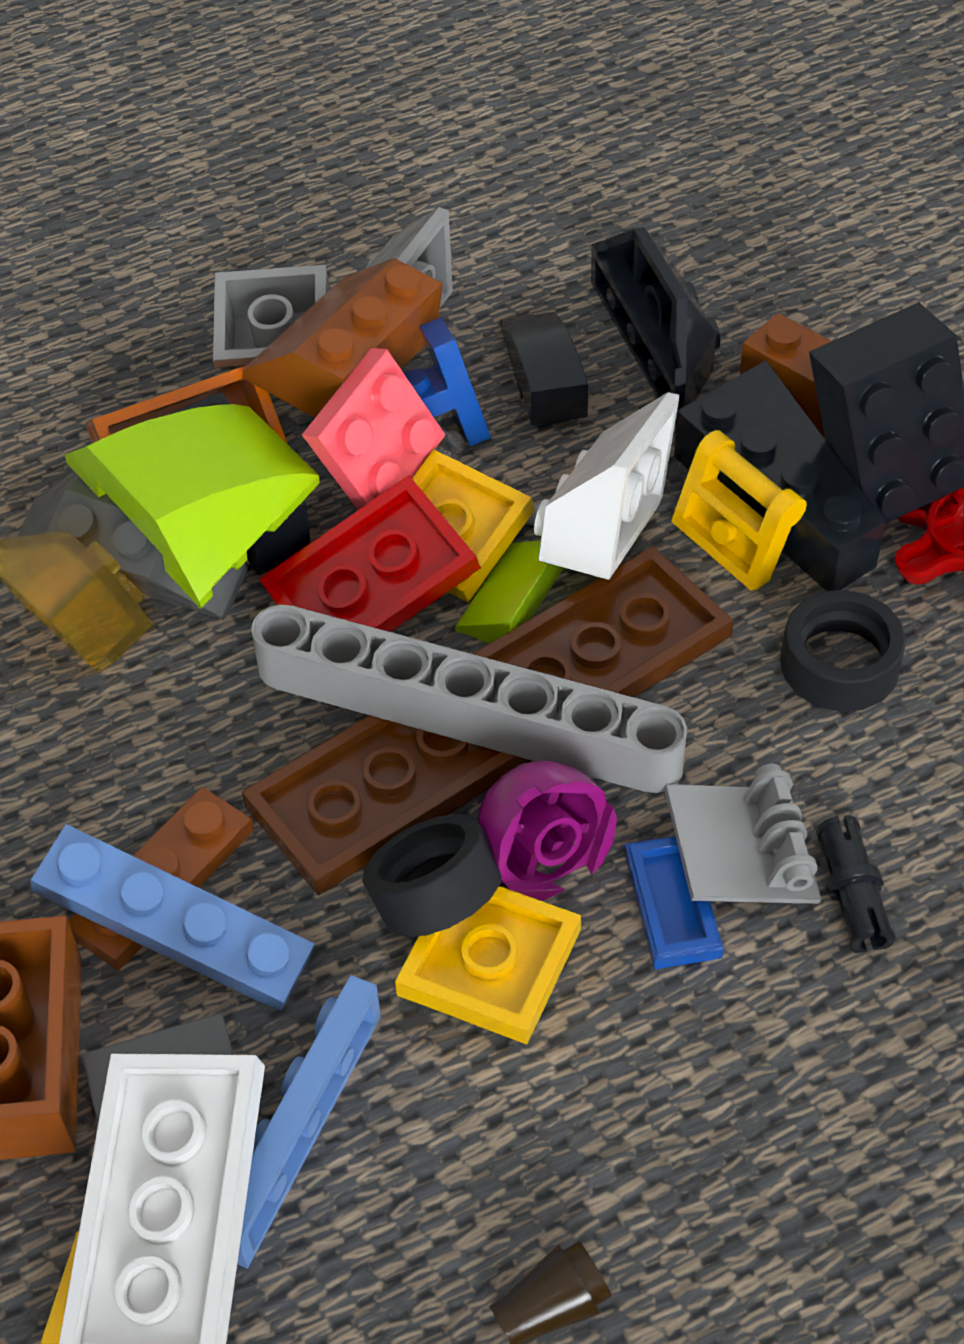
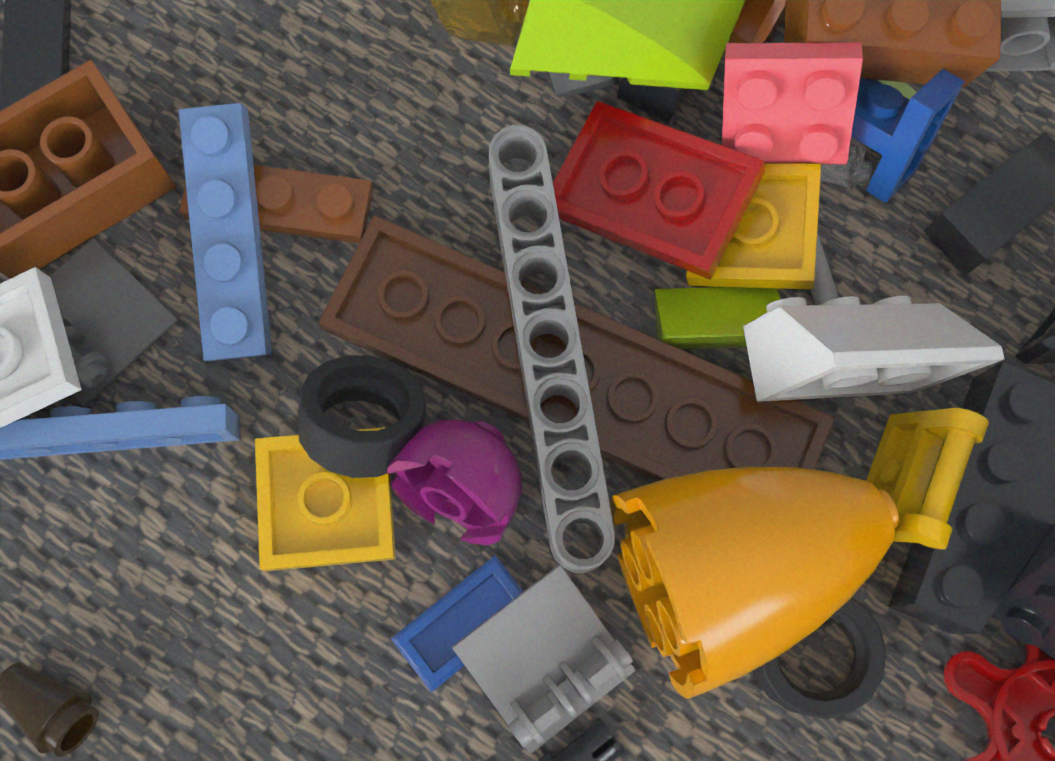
camera: 55 degrees right, 25 degrees up
(742, 650) = (745, 562): none -> light orange cylinder

